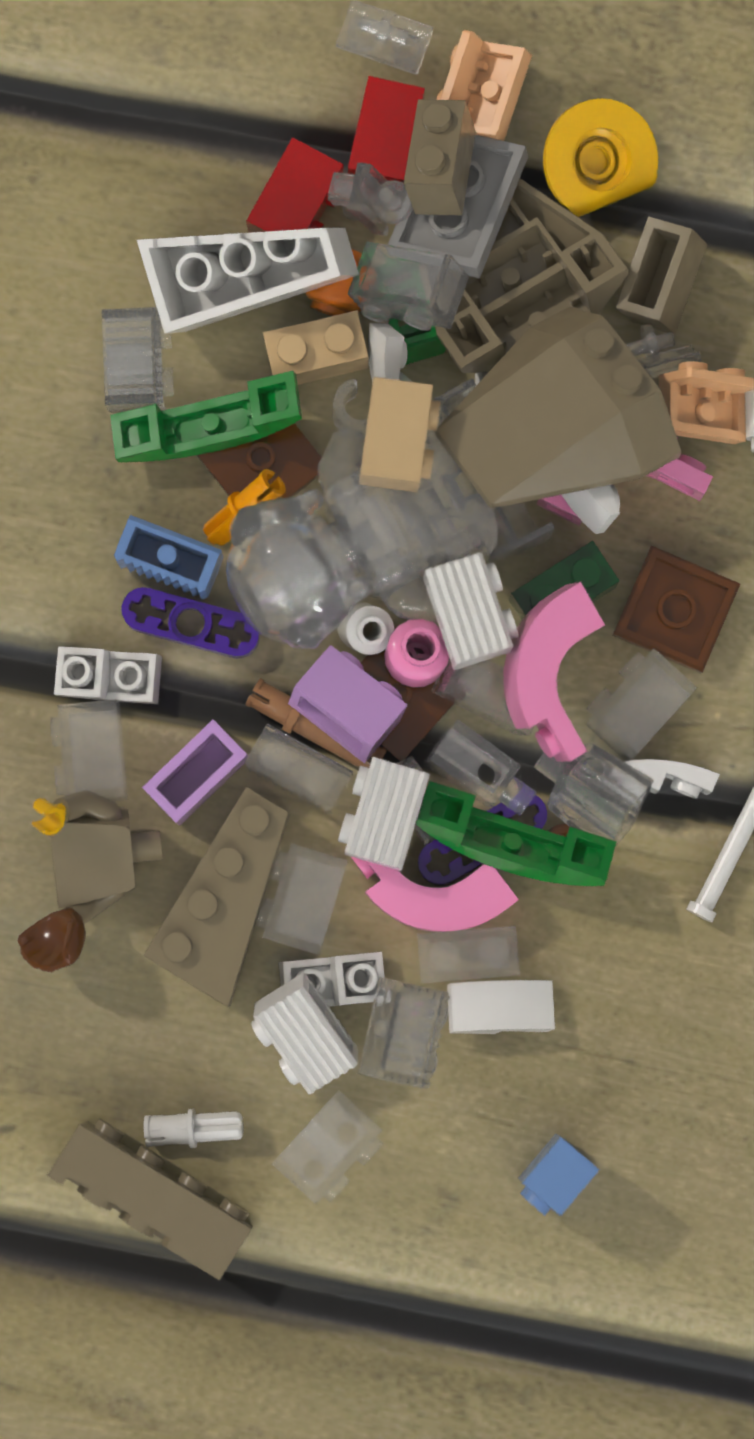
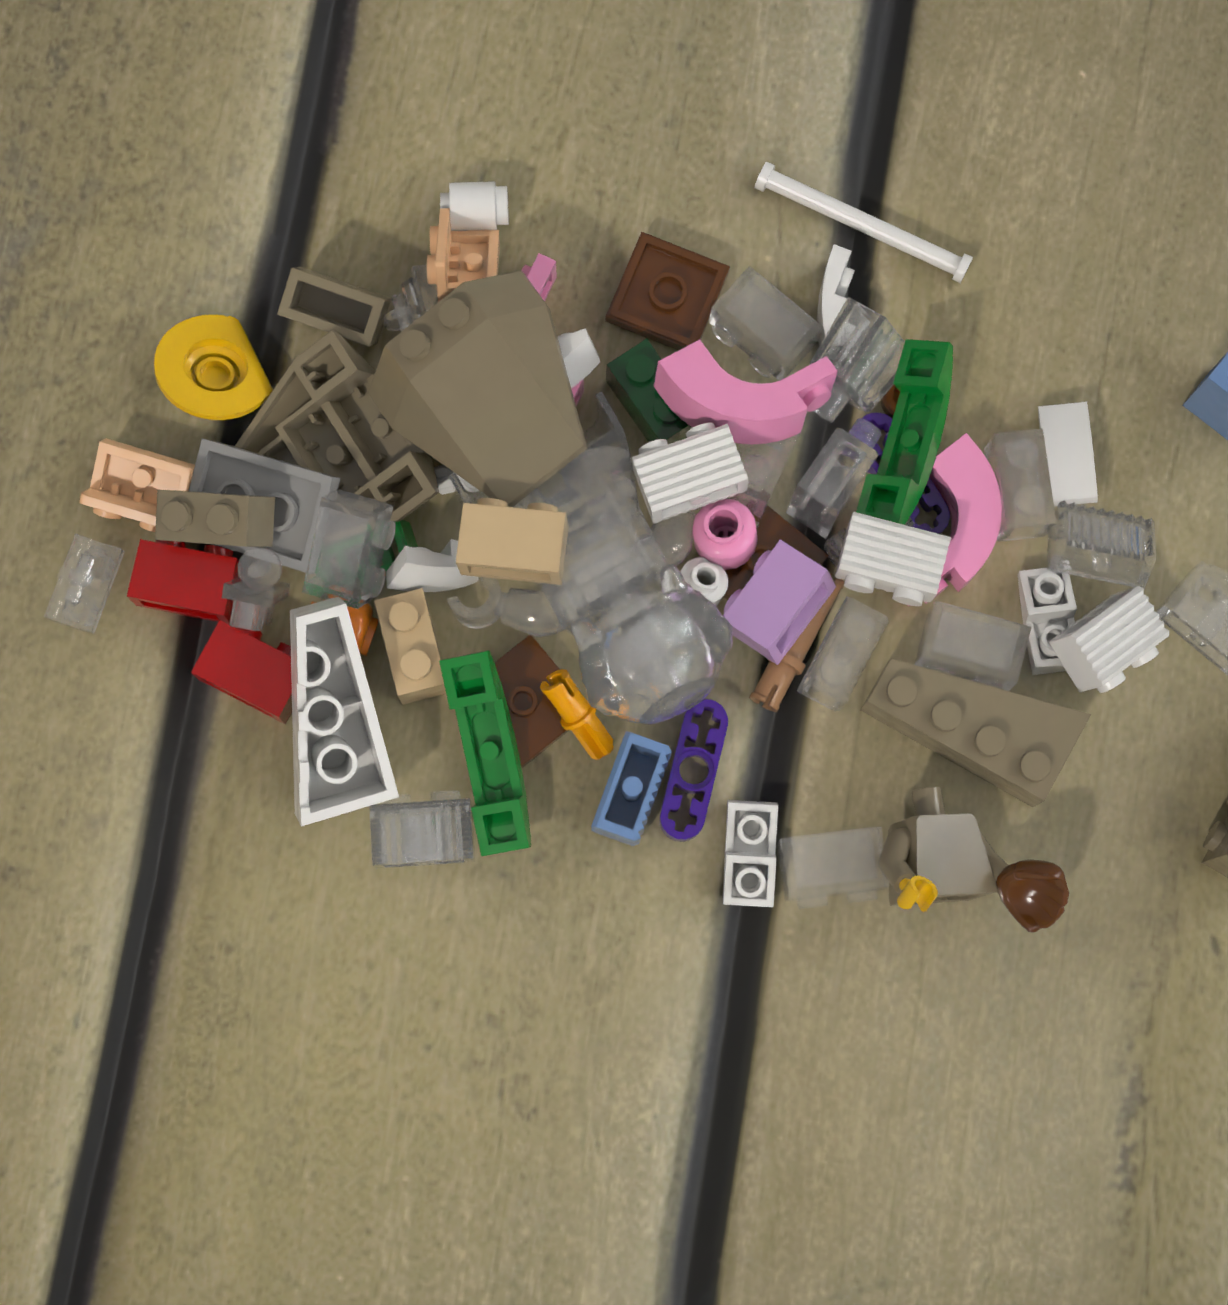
camera: 95 degrees left, 5 degrees down
(192, 1128) = (1206, 753): white axle -> none
(196, 772) = (852, 755): lavender brick -> none

